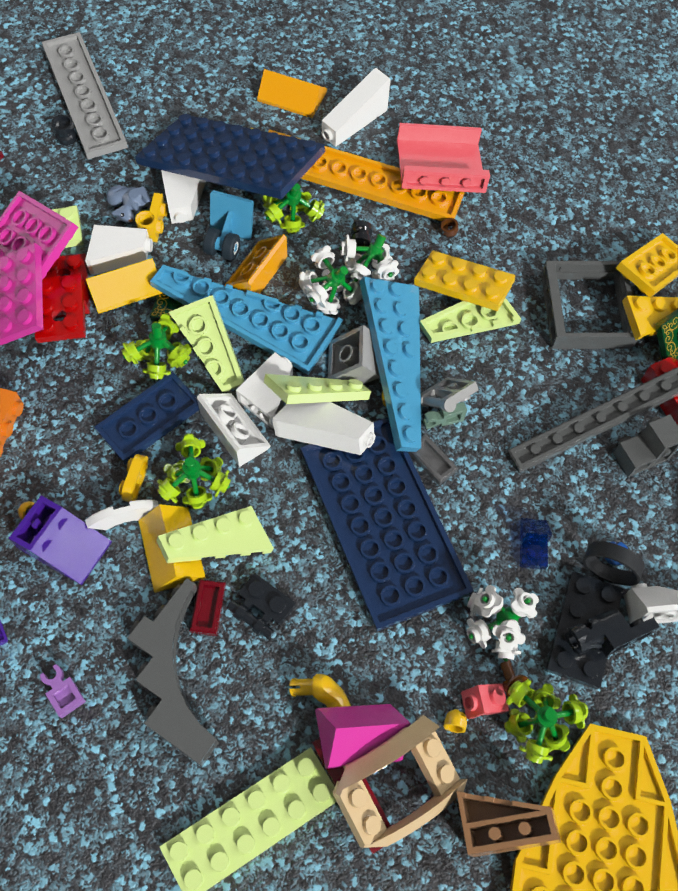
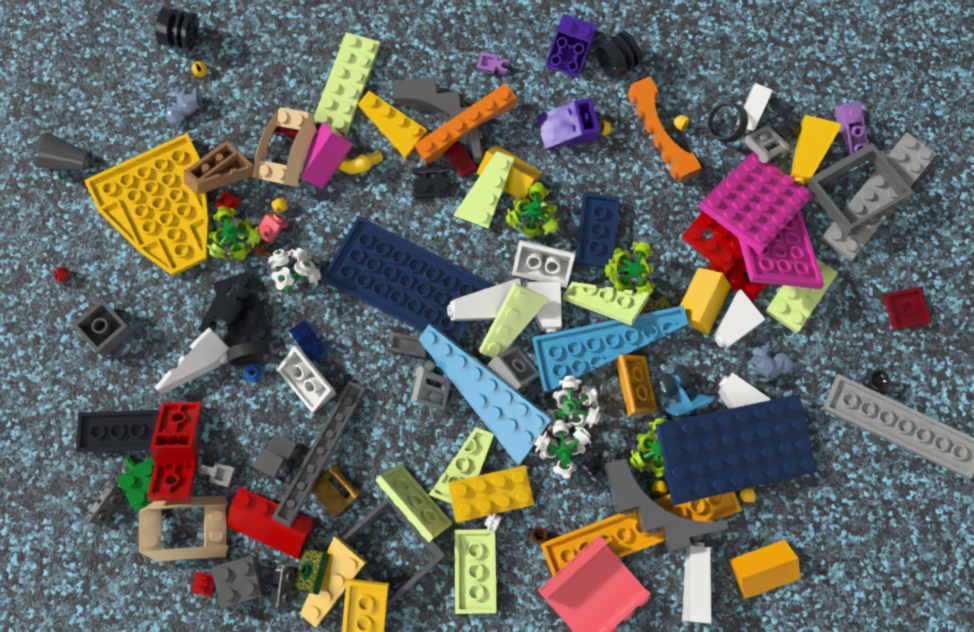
camera: 140 degrees right, 10 degrees up
(109, 517) = (551, 161): white tile -> none
(126, 623) = (437, 142): none -> orange arch
(132, 484) = (564, 184): yellow plate -> none
(153, 219) = (738, 365): yellow plate -> none
(241, 711) = (392, 123): none -> yellow wing
(317, 189) = (659, 488): none -> yellow hinge
(346, 163) = (676, 530): none -> dark grey arch
(482, 254) = (493, 522): none -> white plate
(516, 778) = (228, 201): none -> red tile
(525, 241) = (475, 572): none -> yellowish green plate
(541, 318) = (414, 502): none -> yellowish green plate
(563, 501) = (305, 379): none -> white slope
(611, 380) = (330, 496): none -> pearl gold plate

